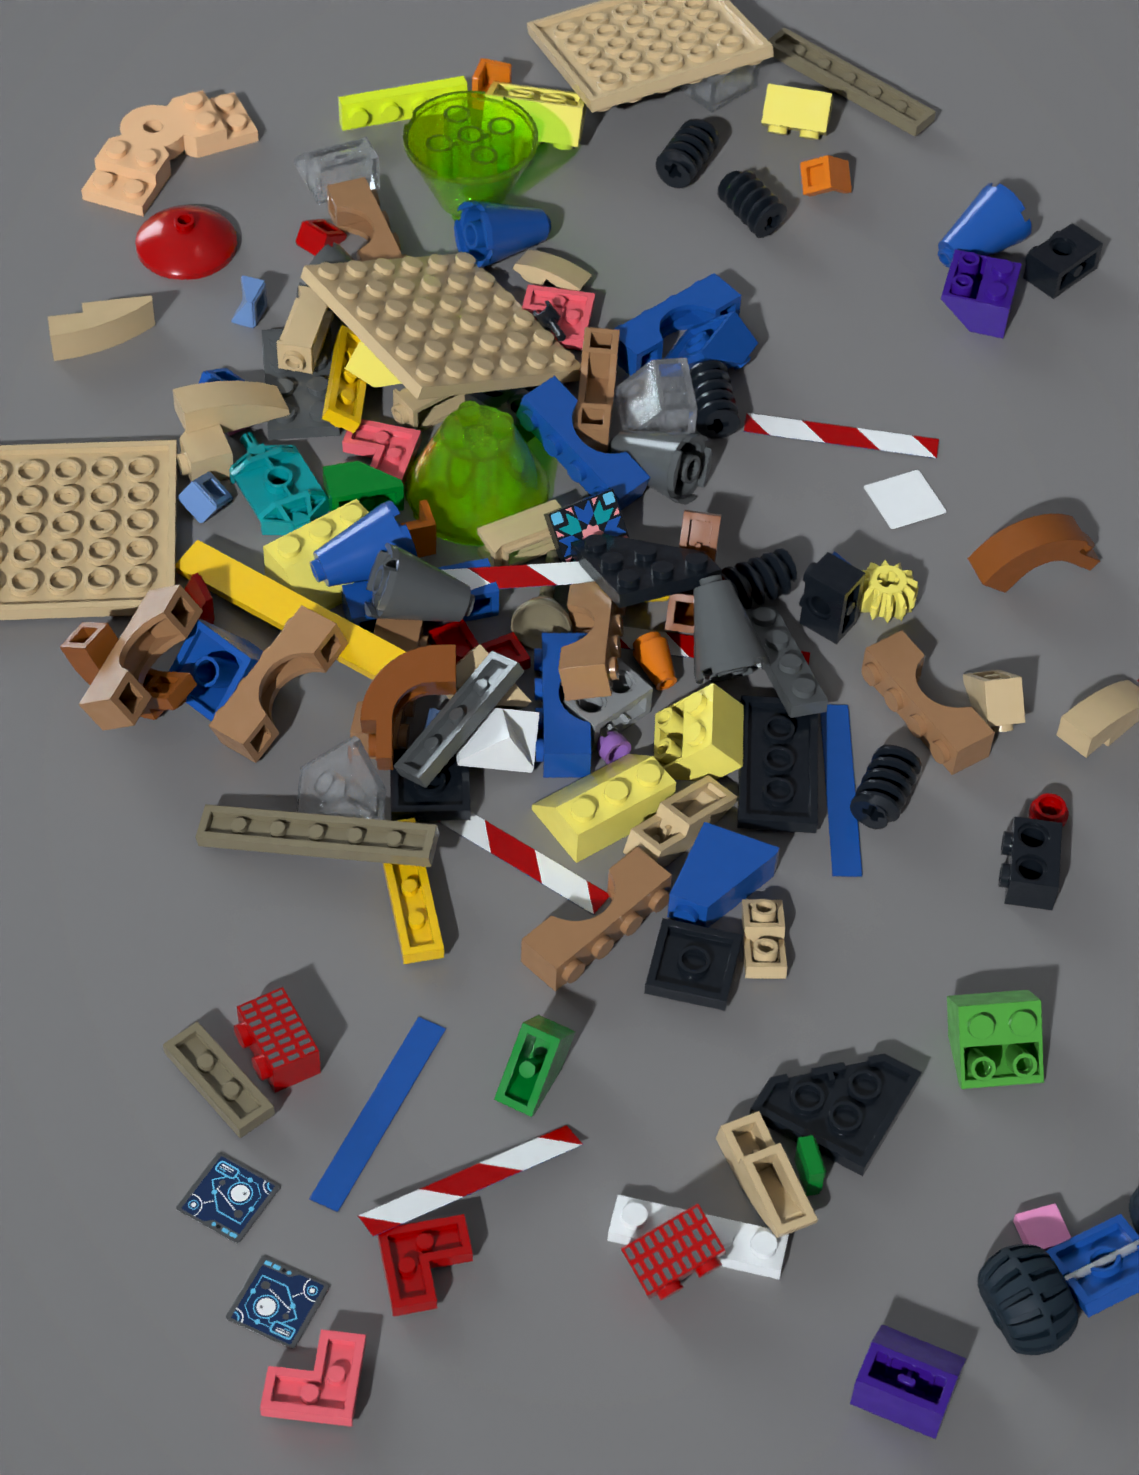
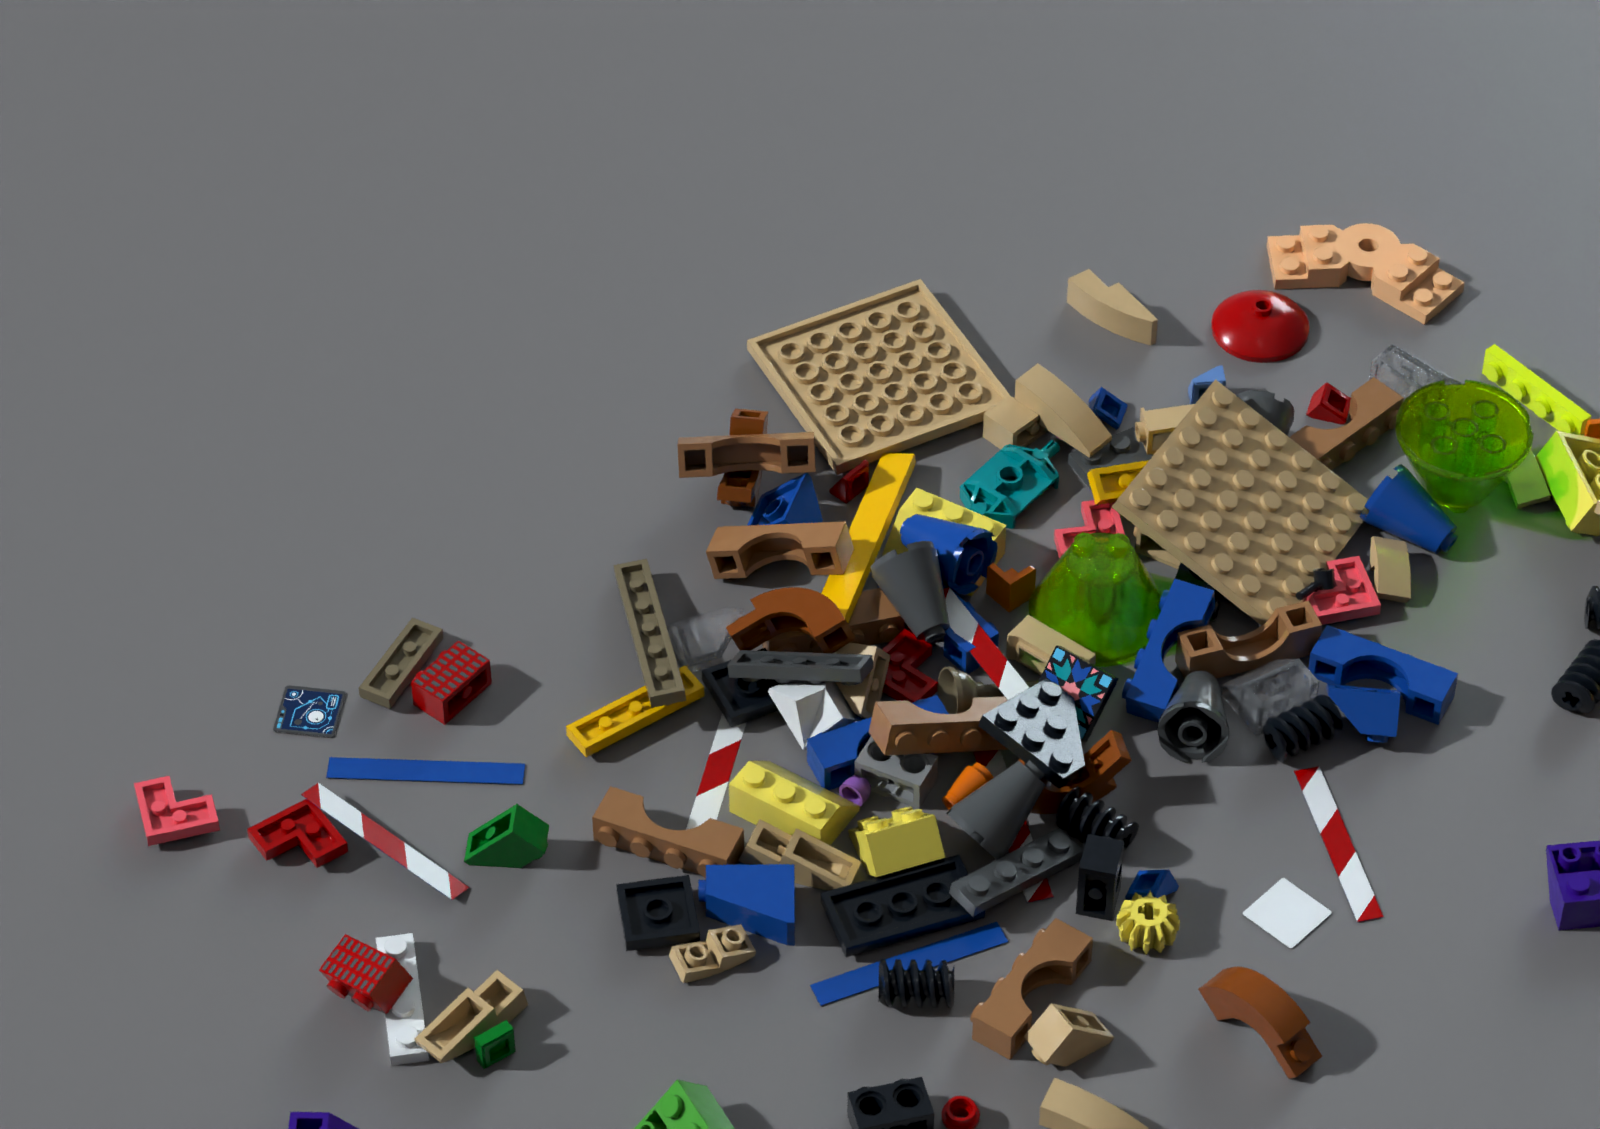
camera: 70 degrees right, 5 degrees down
(204, 497) = (969, 443): medium blue slope -> none
(277, 1302) = (234, 771): sticker -> none
(361, 482) = (1031, 531): green slope -> none
(841, 1106) = (564, 1051): black plate -> none

